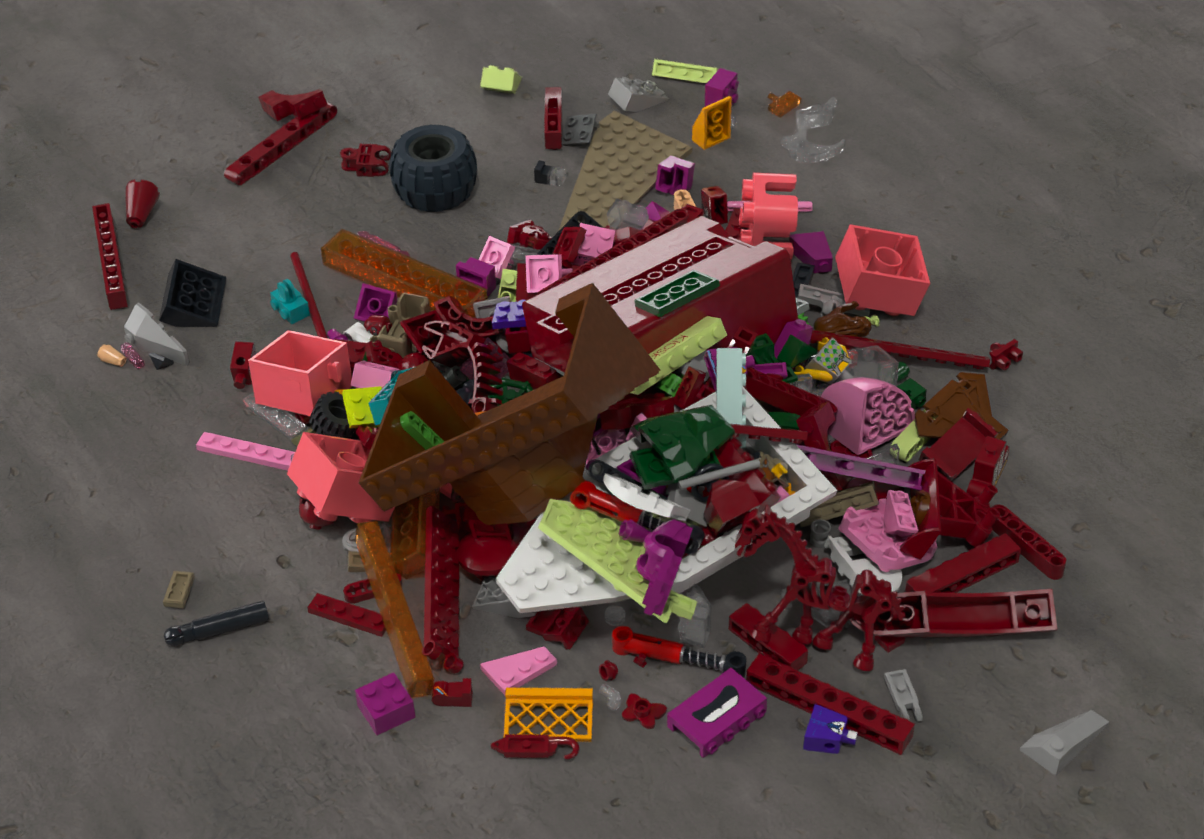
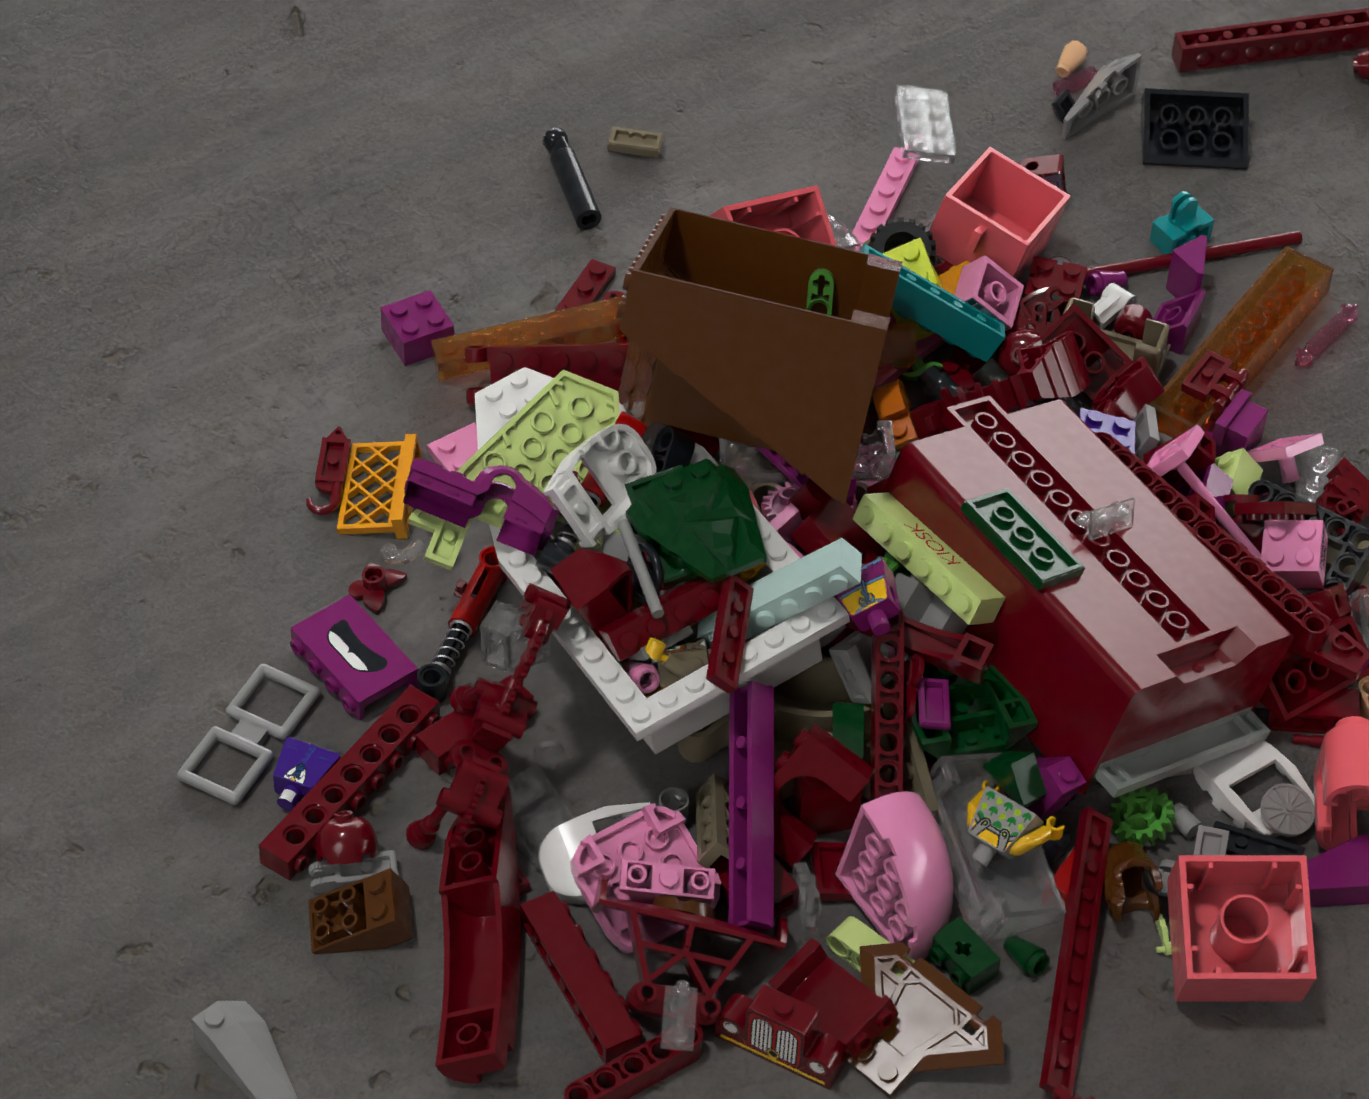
camera: 90 degrees right, 5 degrees up
(175, 427) = (925, 124): none -> clear plate
(339, 294) = (1187, 267): none -> magenta slope
(448, 276) = (1206, 380): none -> dark red plate
(453, 693) = (428, 393): dark red leg -> none
(640, 268) = (1107, 519): none -> clear hinge
(793, 771) = (248, 734): none -> light grey bar
(891, 692) = (346, 839): none -> dark red cylinder
(941, 687) = (362, 915): none -> reddish brown slope
(1006, 507) = (679, 1017): none -> clear hinge

